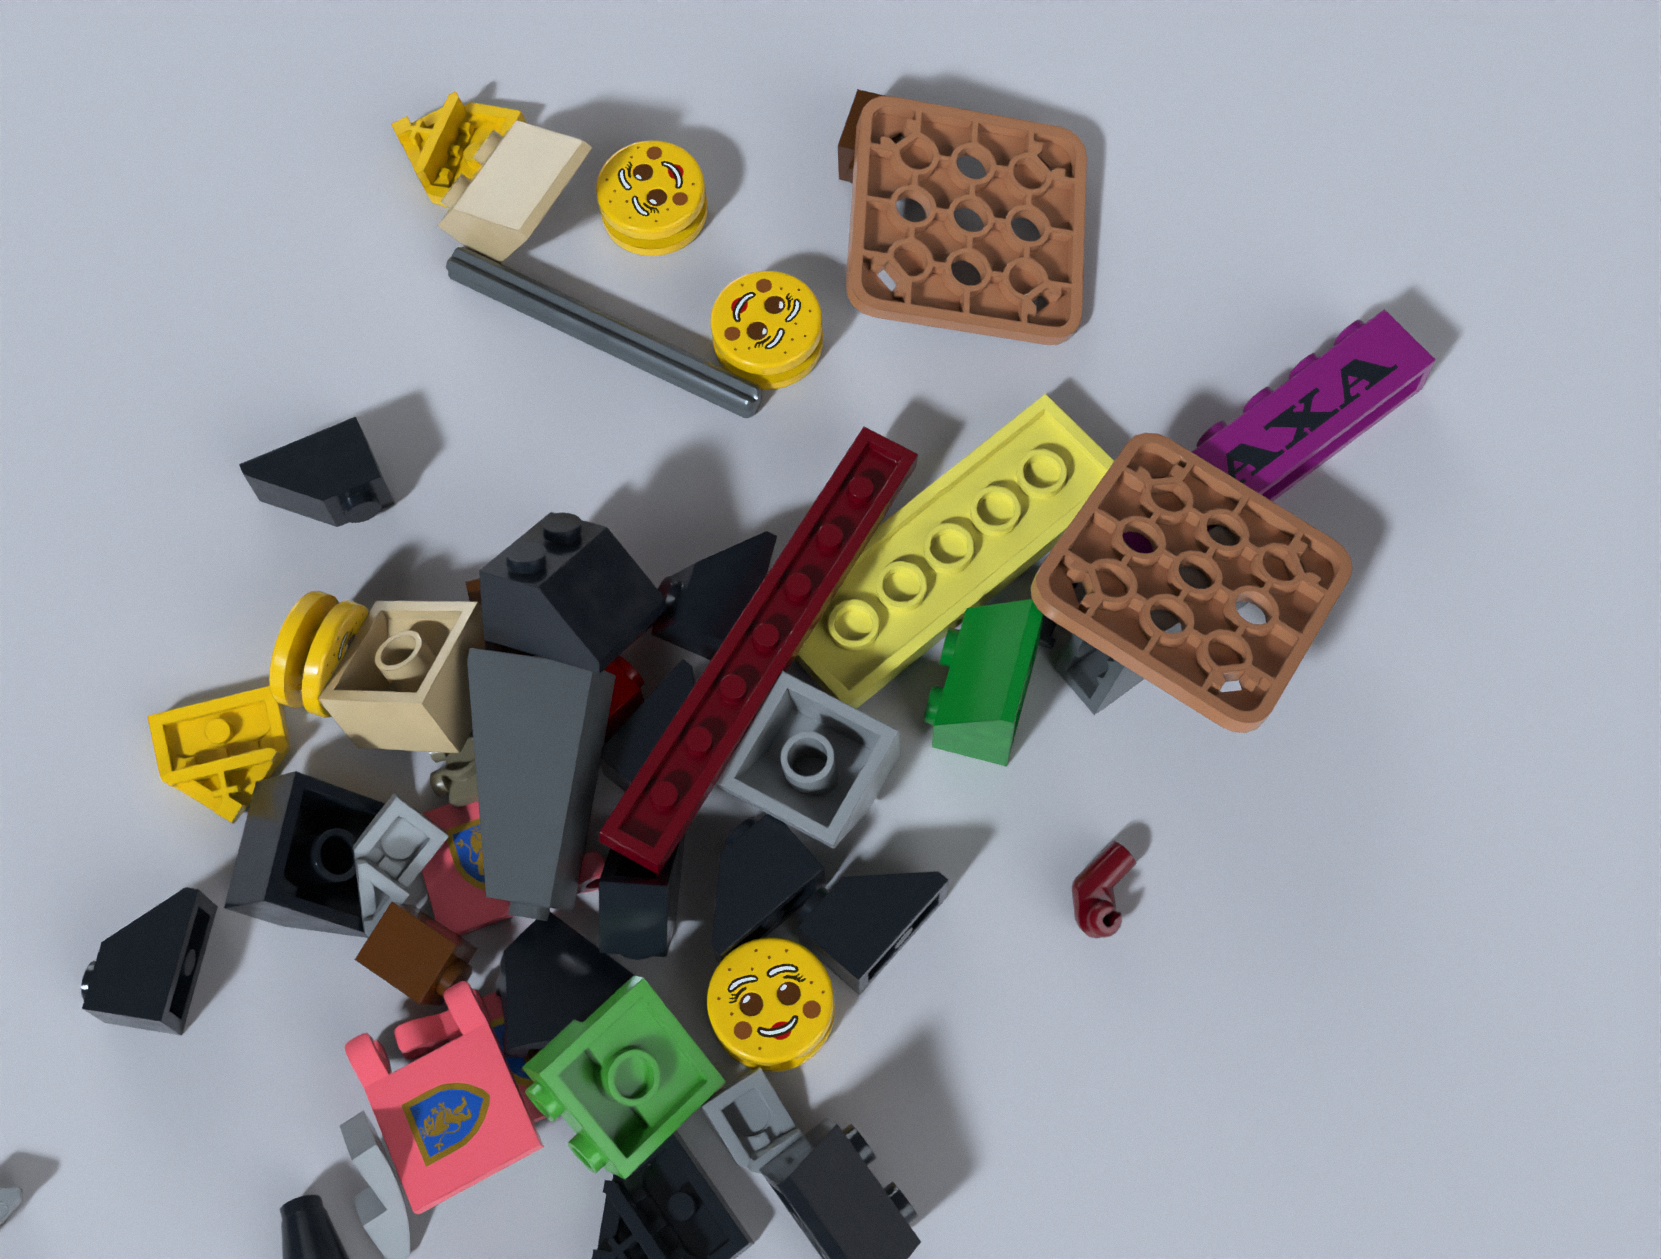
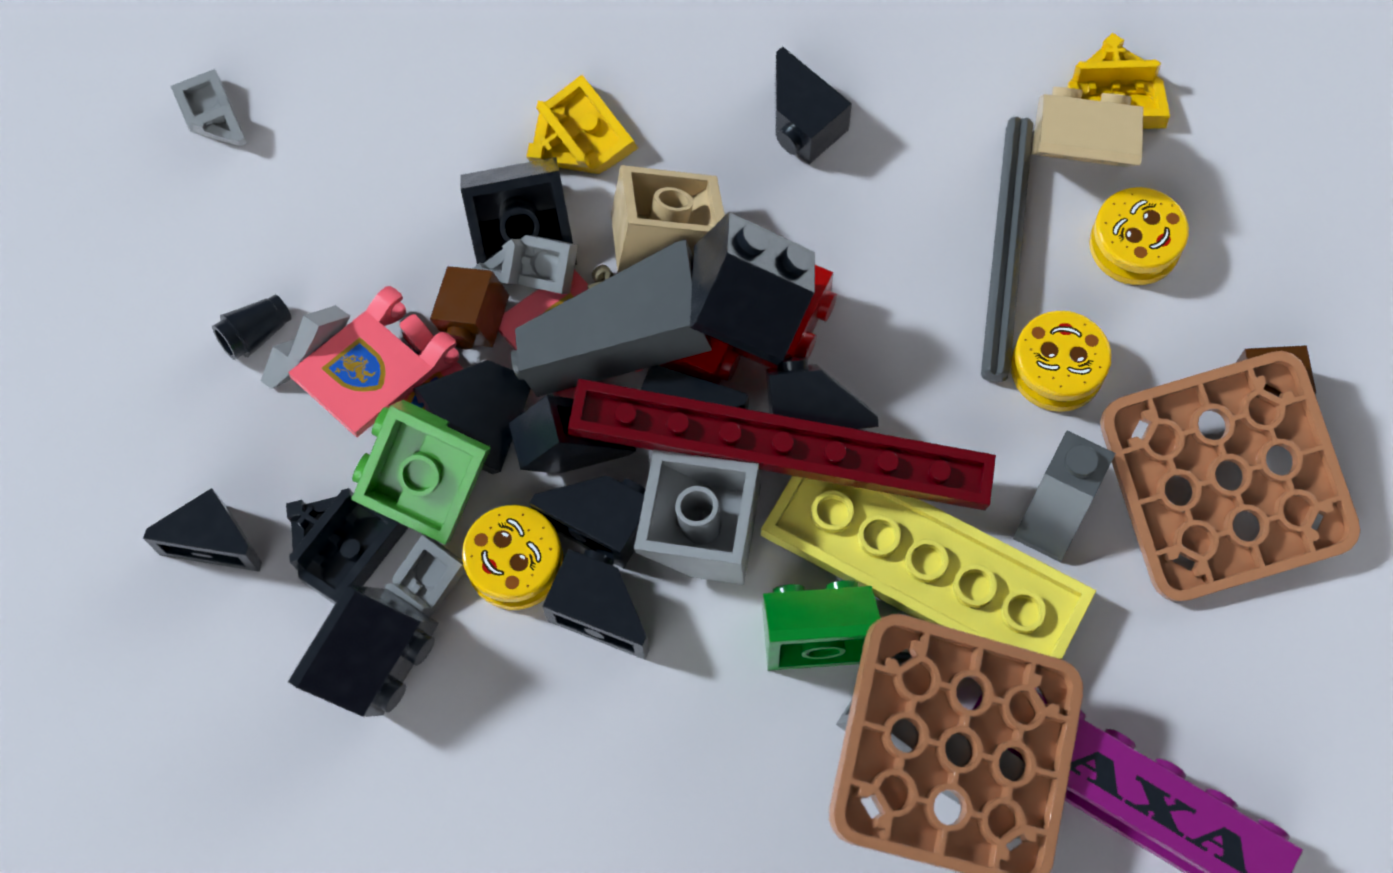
camera: 70 degrees right, 0 degrees up
(151, 966) = (410, 151): black slope -> none
(311, 648) = (663, 145): yellow head -> none
(925, 384) = (1064, 496): none -> dark grey slope
(1094, 892) = (682, 769): dark red arm -> none

